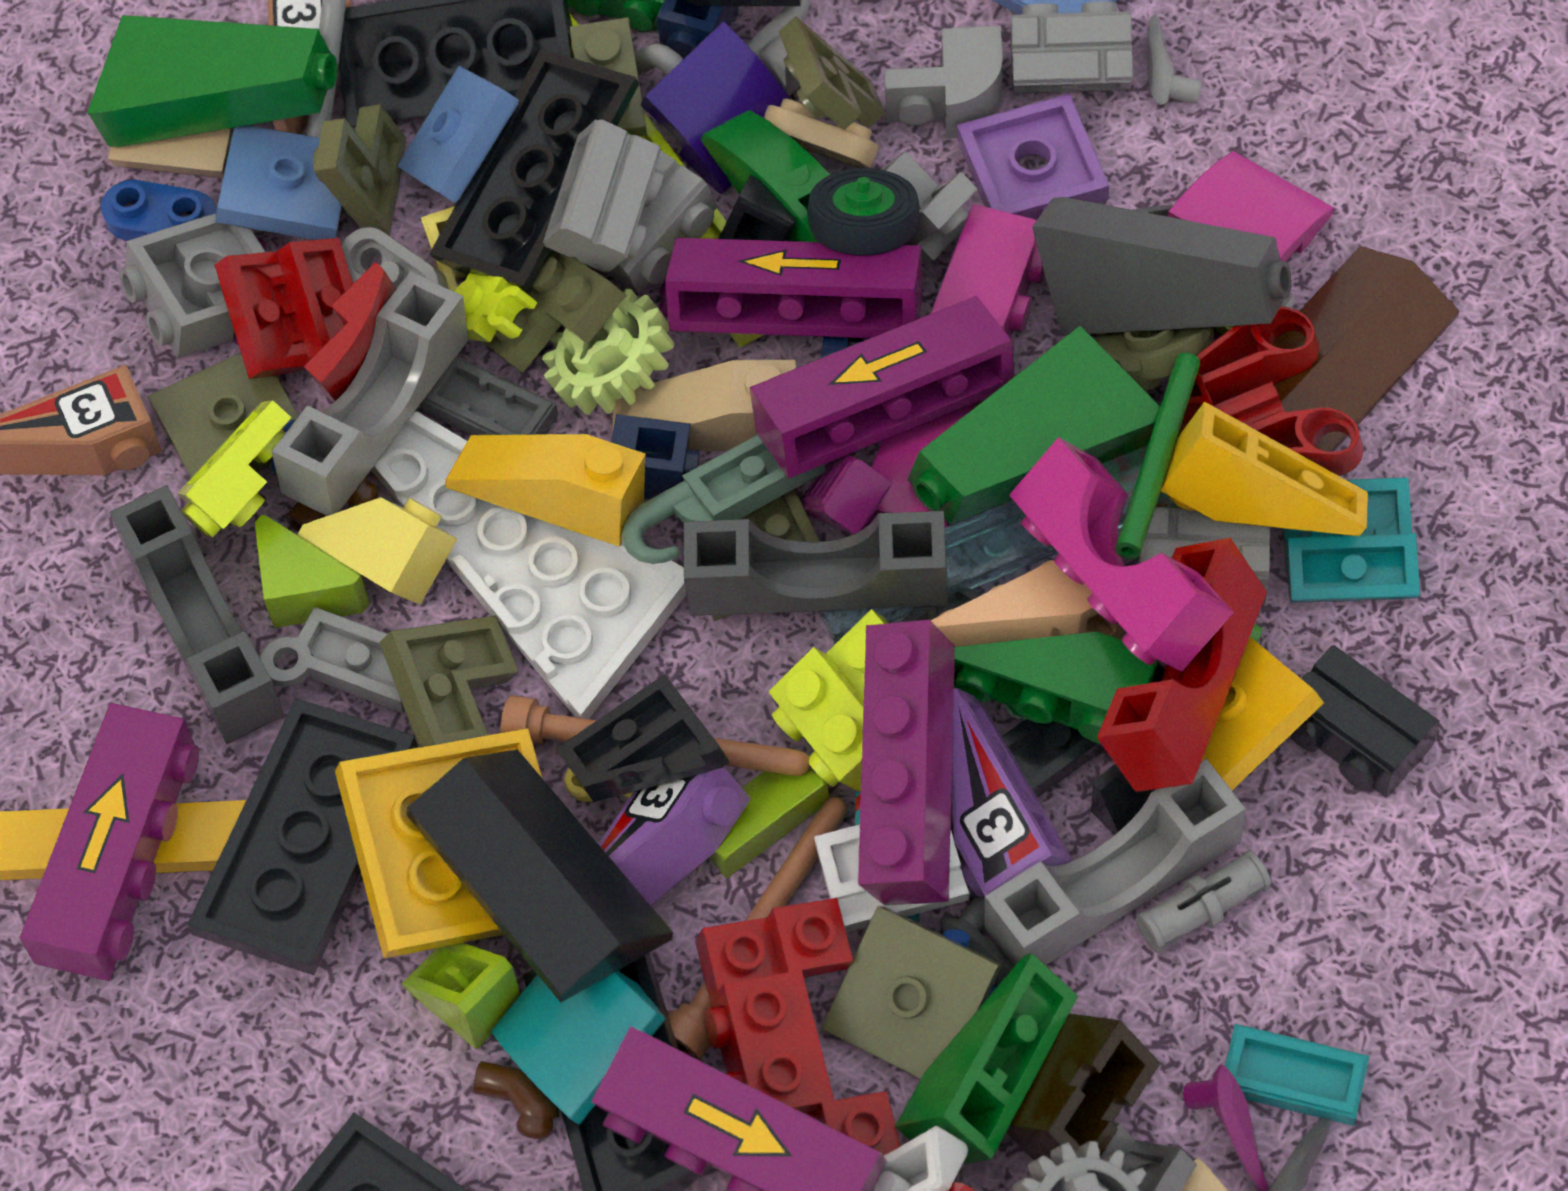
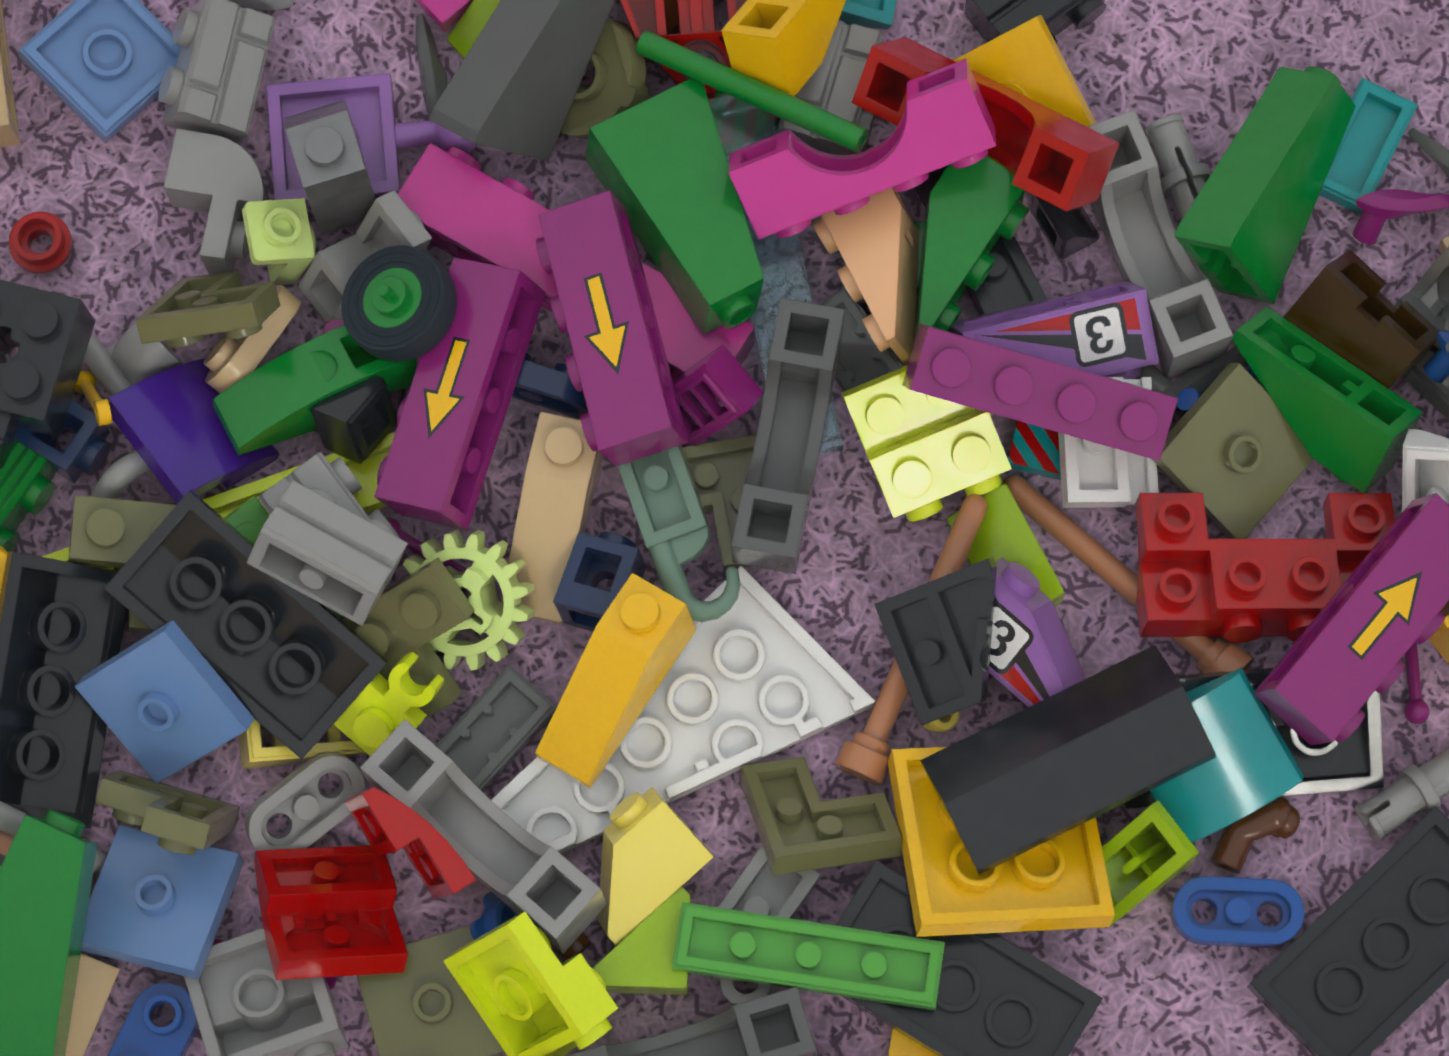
camera: 80 degrees left, 15 degrees up
(306, 692) = (808, 956): none -> bright green tile
(429, 1096) = (1236, 911): none -> blue plate
(710, 17) = (86, 385): none -> yellow hinge
(919, 124) = (280, 237): none -> yellowish green bracket
(990, 130) = (330, 165): none -> flat silver slope
(1211, 967) = (1267, 184): none -> green slope

